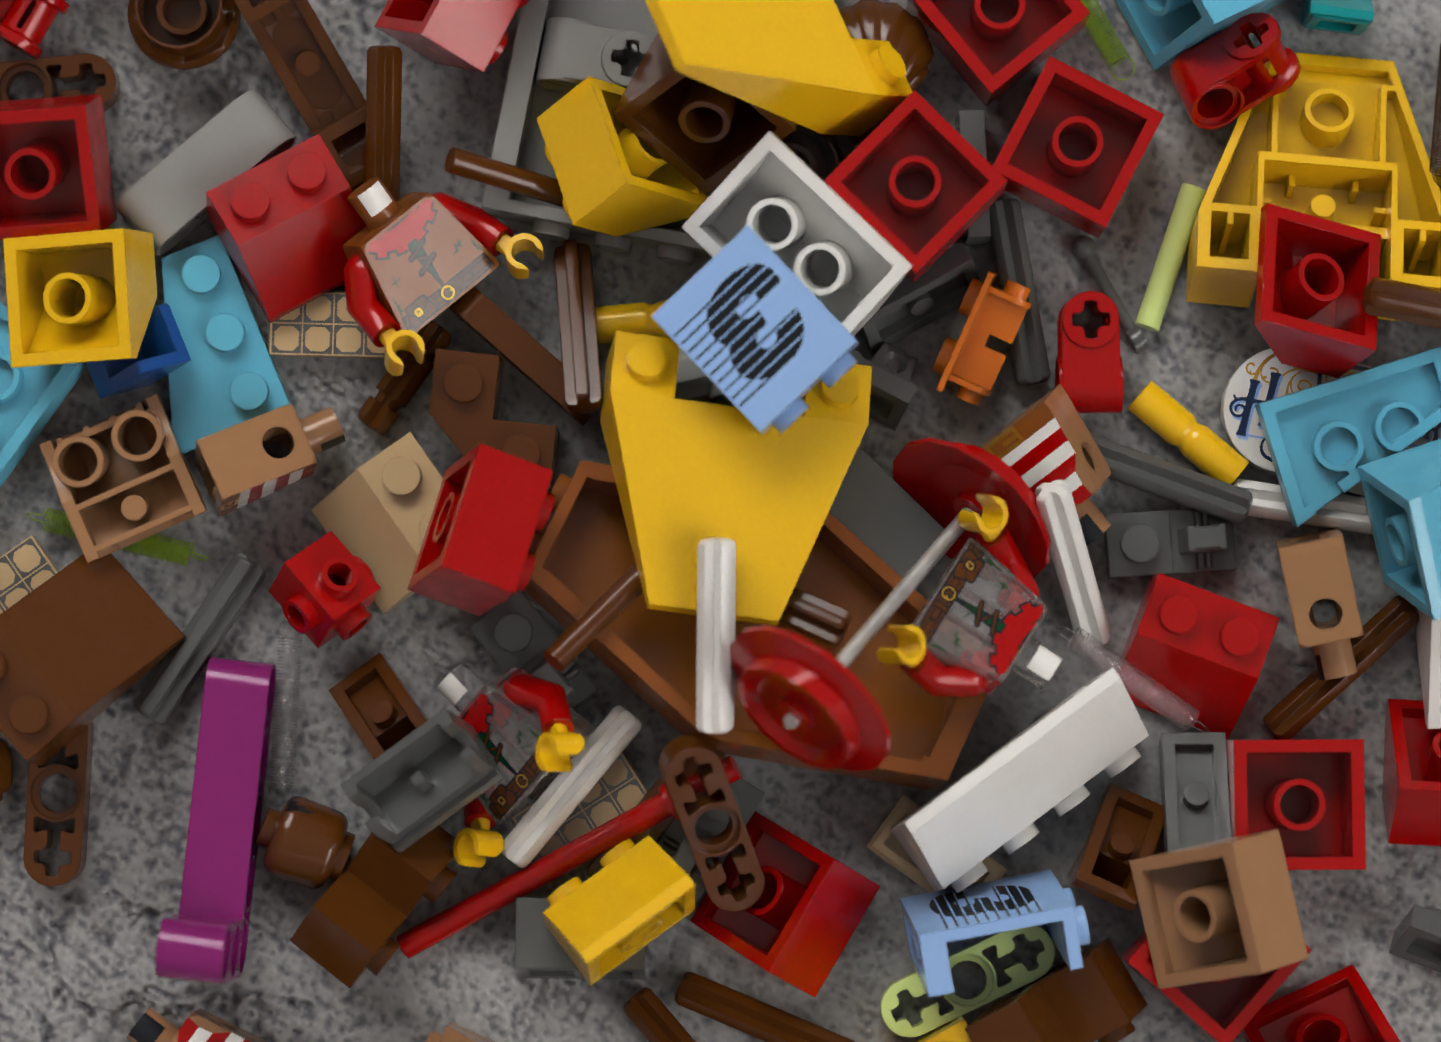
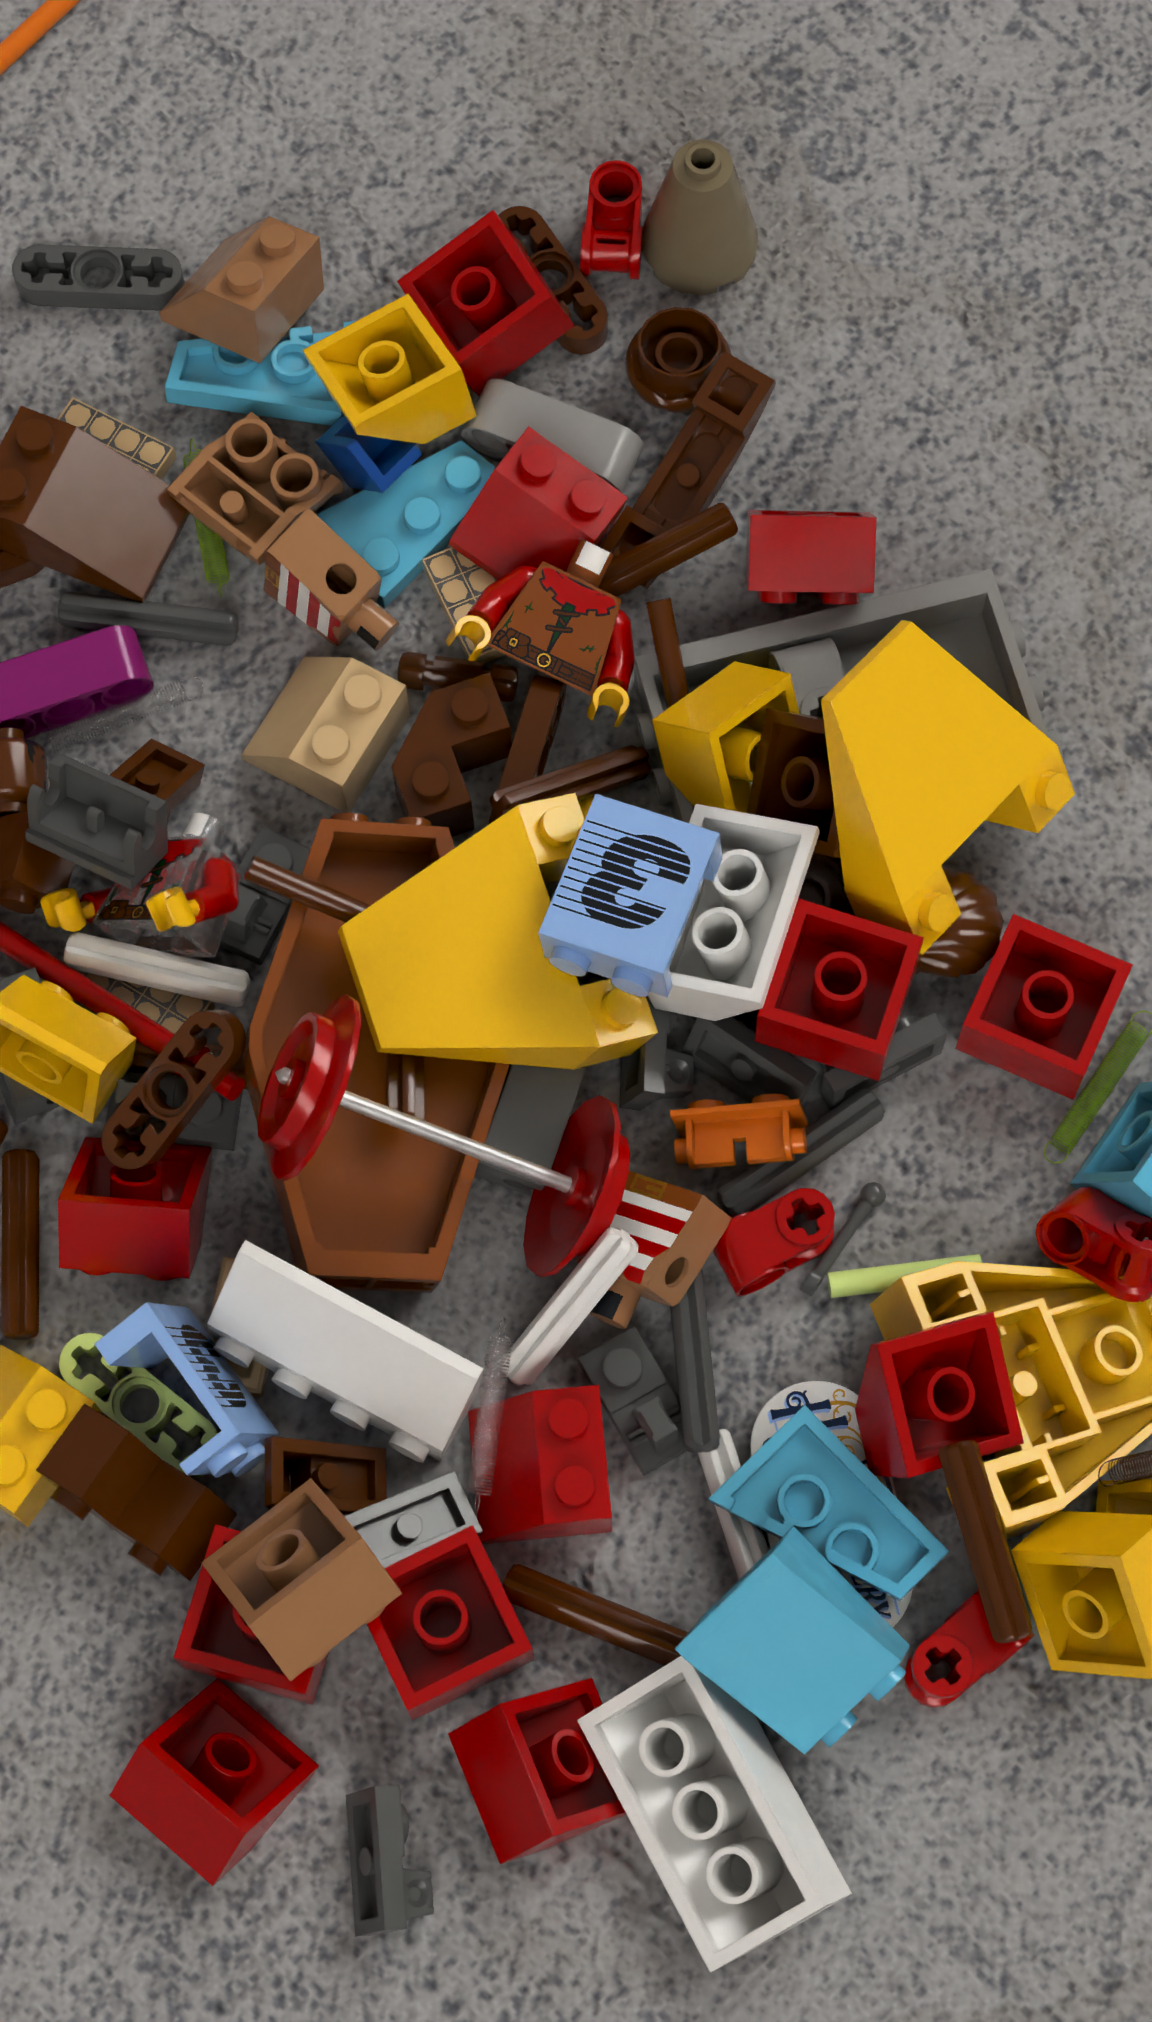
camera: 65 degrees right, 15 degrees down
(325, 591) = (235, 689): red brick -> none
(483, 530) = (339, 760): red brick -> none
(715, 635) = (360, 980): white axle -> none
(977, 617) = (469, 1226): torso -> none
(1075, 146) = (957, 1131): red brick -> none
(1182, 430) = (749, 1360): yellow piece -> none
(1319, 569) = (669, 1531): medium nougat torso -> none

